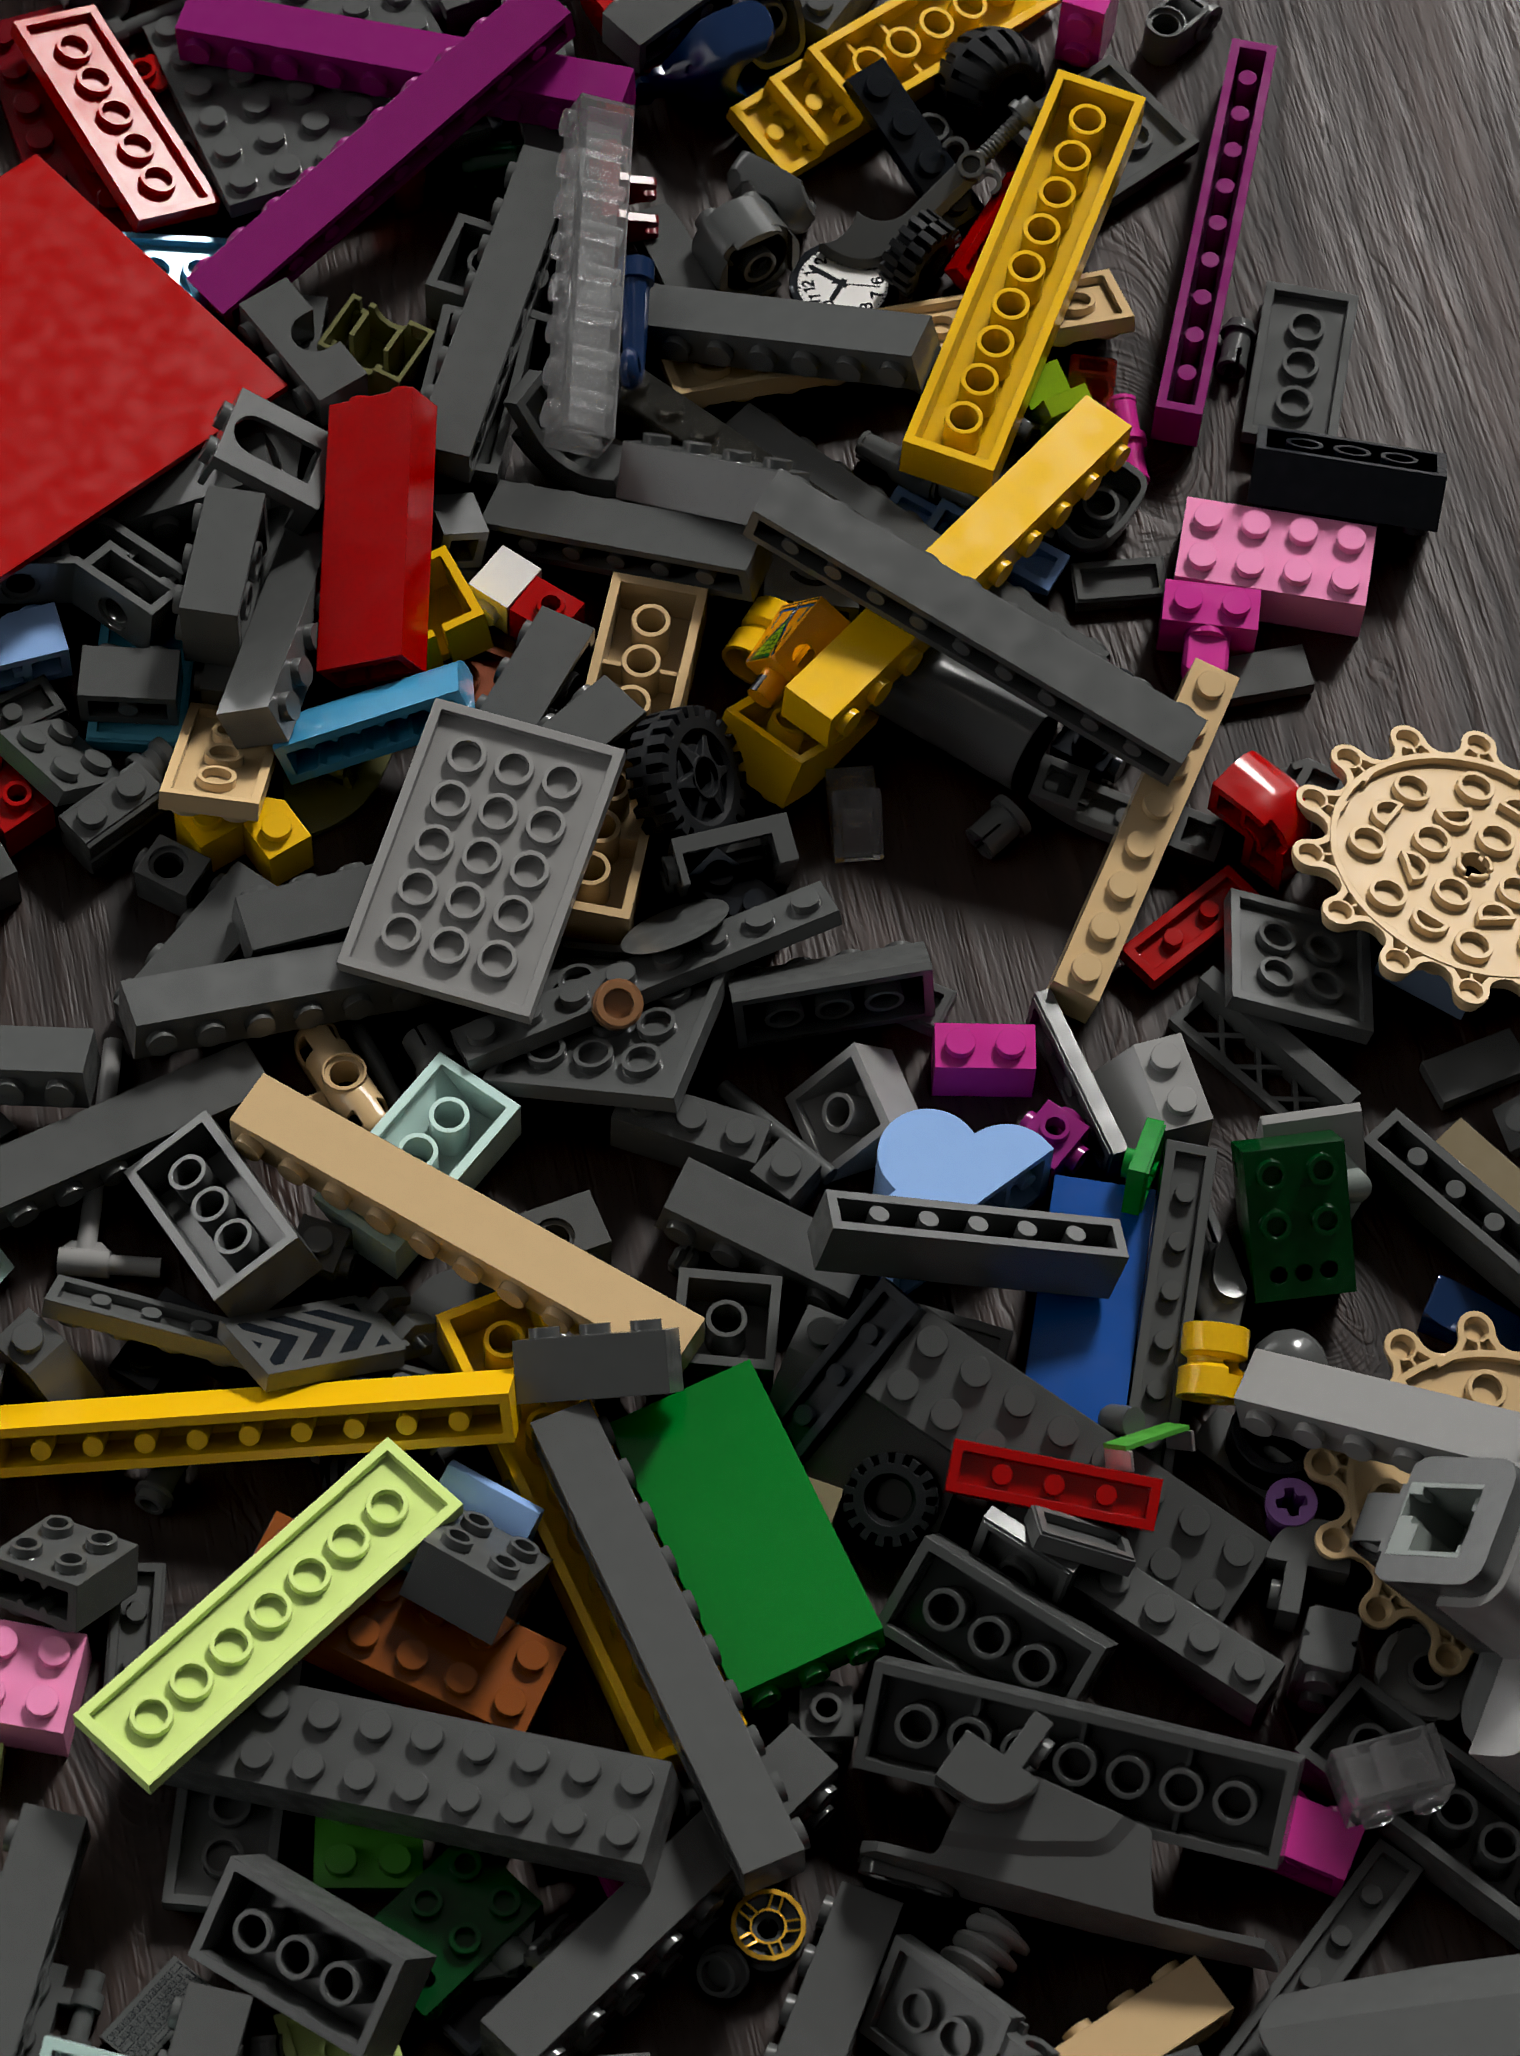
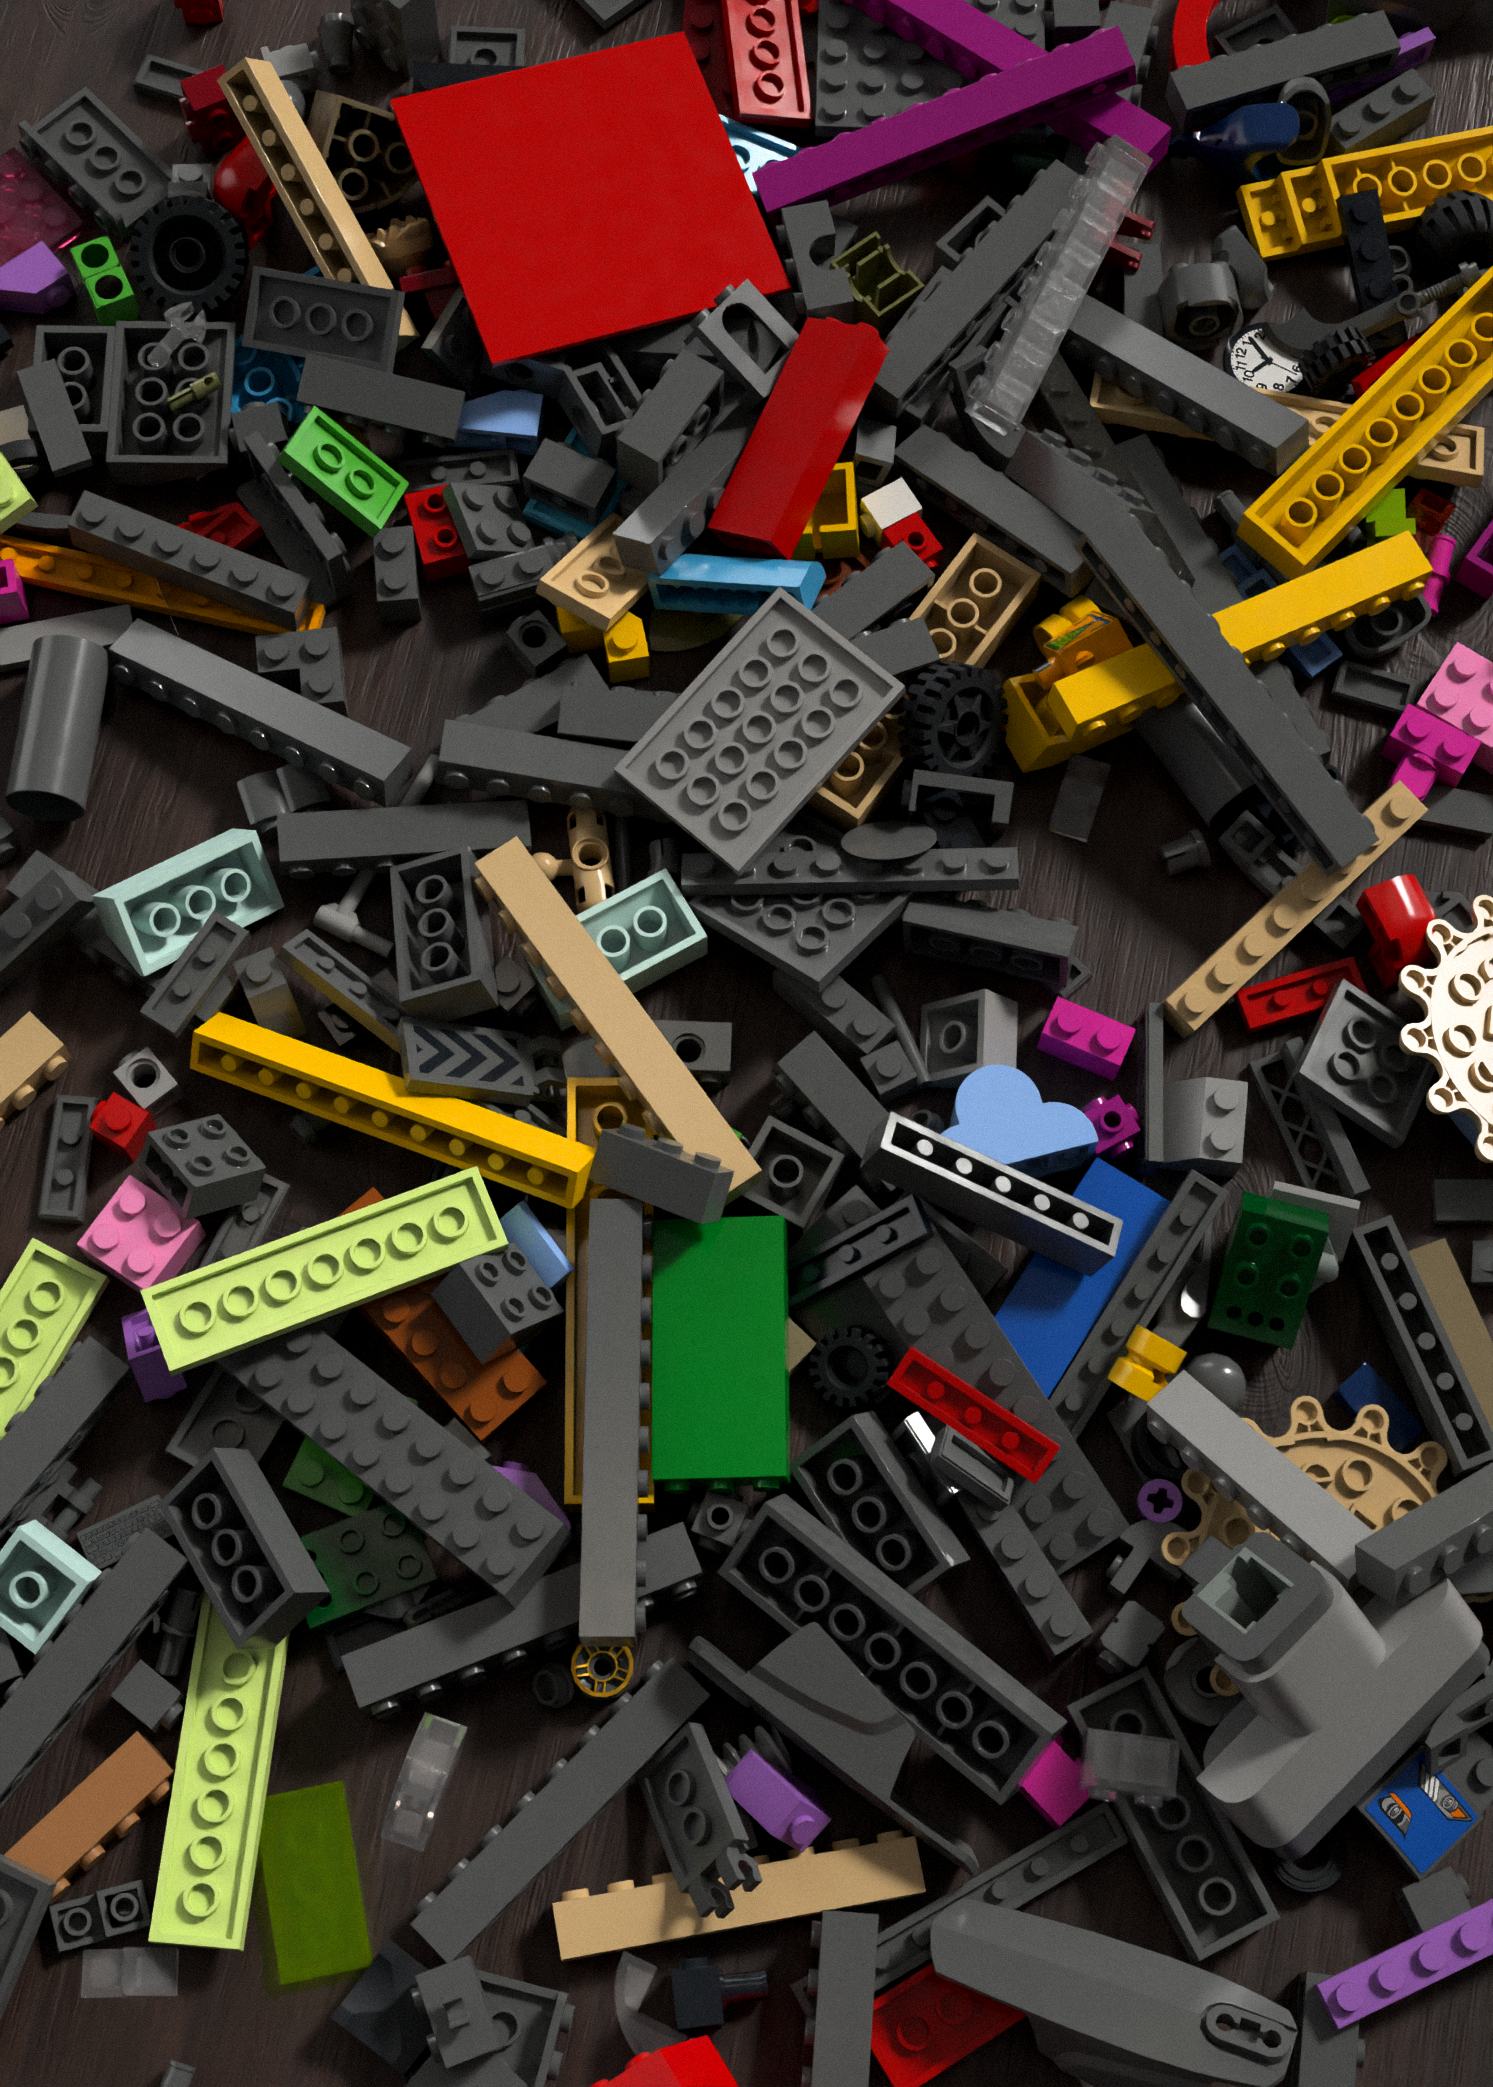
camera: 25 degrees right, 10 degrees up
(103, 1796) = (148, 1359): none -> medium lavender slope
(617, 1004) = (813, 886): medium nougat tile -> none
(637, 286) = (1094, 304): dark blue plant -> none
(995, 1781) = (802, 1644): dark grey brick -> none
(1031, 1978) = (778, 1801): none -> medium lavender slope
(1129, 1424) = (1059, 1386): piece -> none
(1141, 1166) = (1165, 1180): green plate -> none

